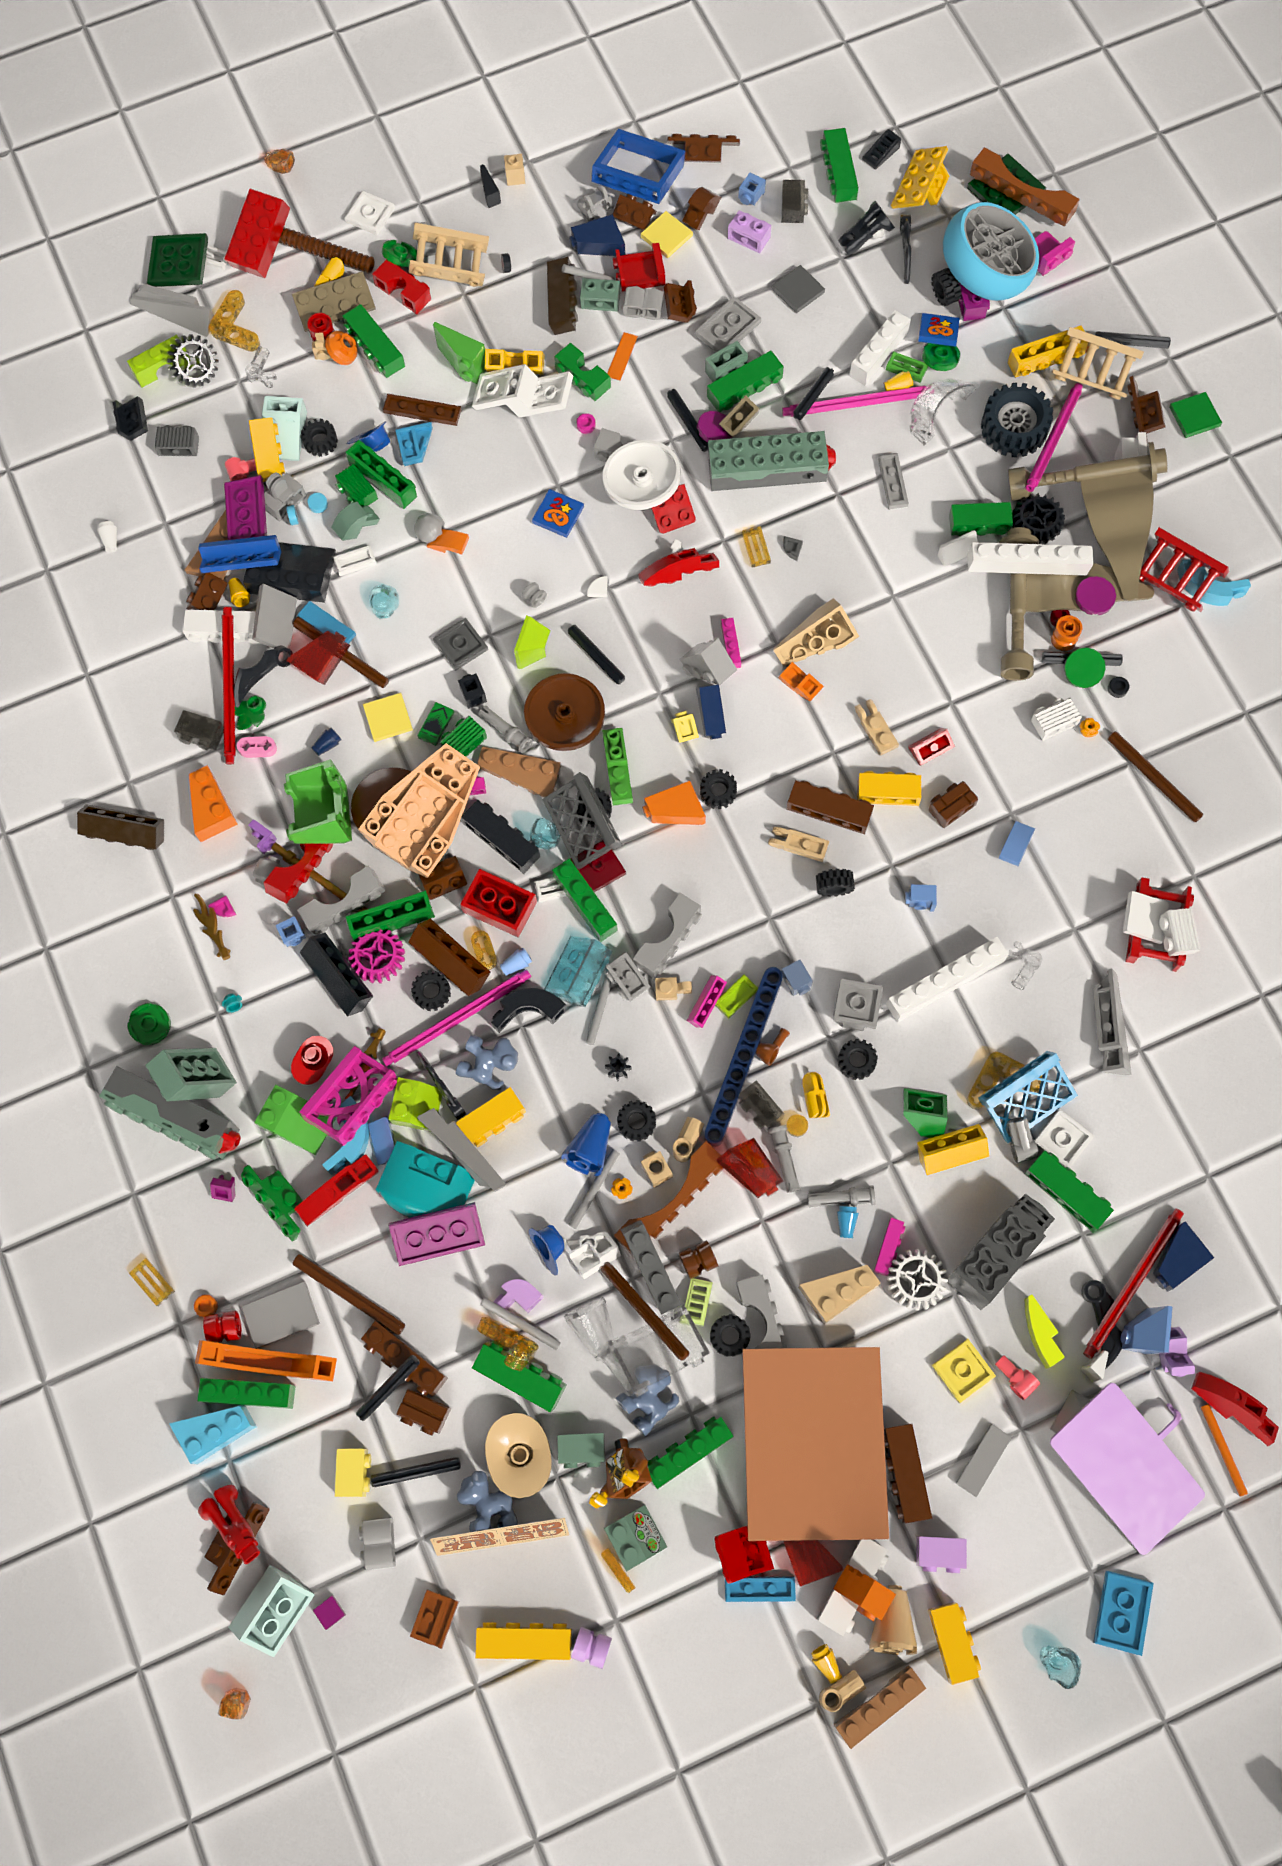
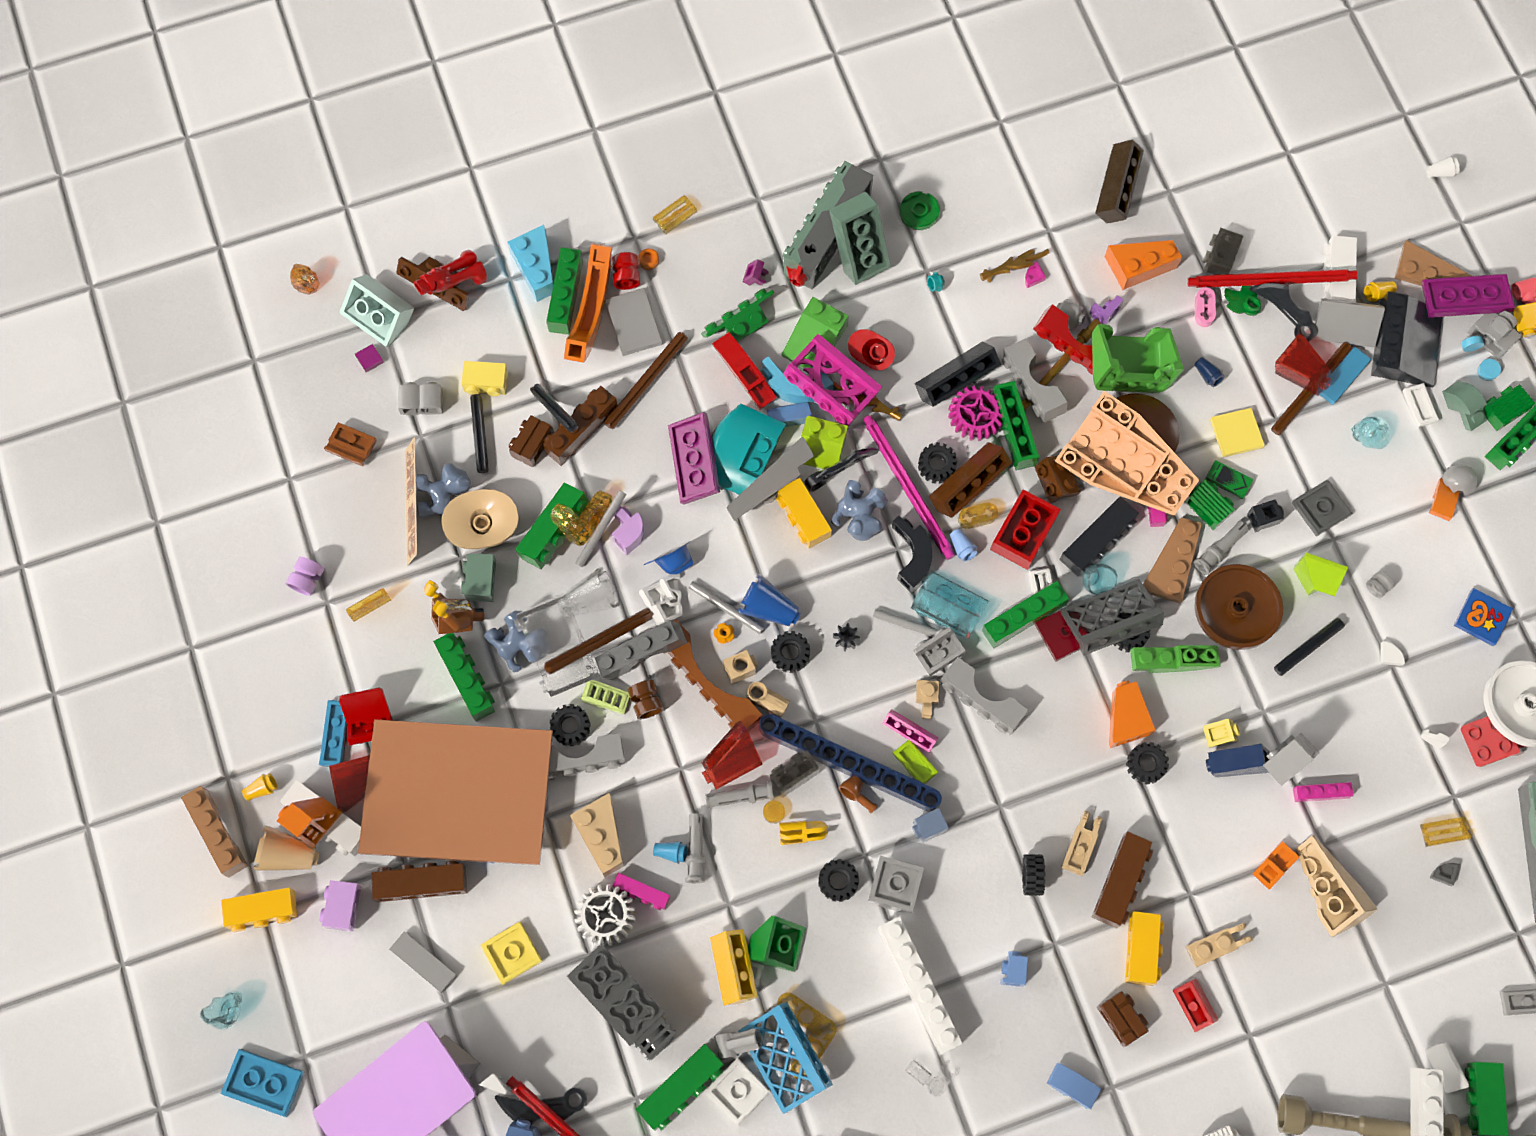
camera: 90 degrees right, 0 degrees up
(207, 593) = (1377, 261): reddish brown bracket -> none
(239, 552) = (1424, 290): blue fence -> none
(292, 935) = (1003, 333): medium blue brick -> none
(523, 1642) = (318, 518): yellow brick -> none
(635, 1538) = (394, 621): sand green slope -> none
(670, 568) = (1421, 744): red slope -> none
(844, 1689) = (233, 800): tan piece -> none
(1021, 1381) = (493, 1009): coral pin -> none
(1041, 1333) = (538, 1037): neon yellow slope -> none

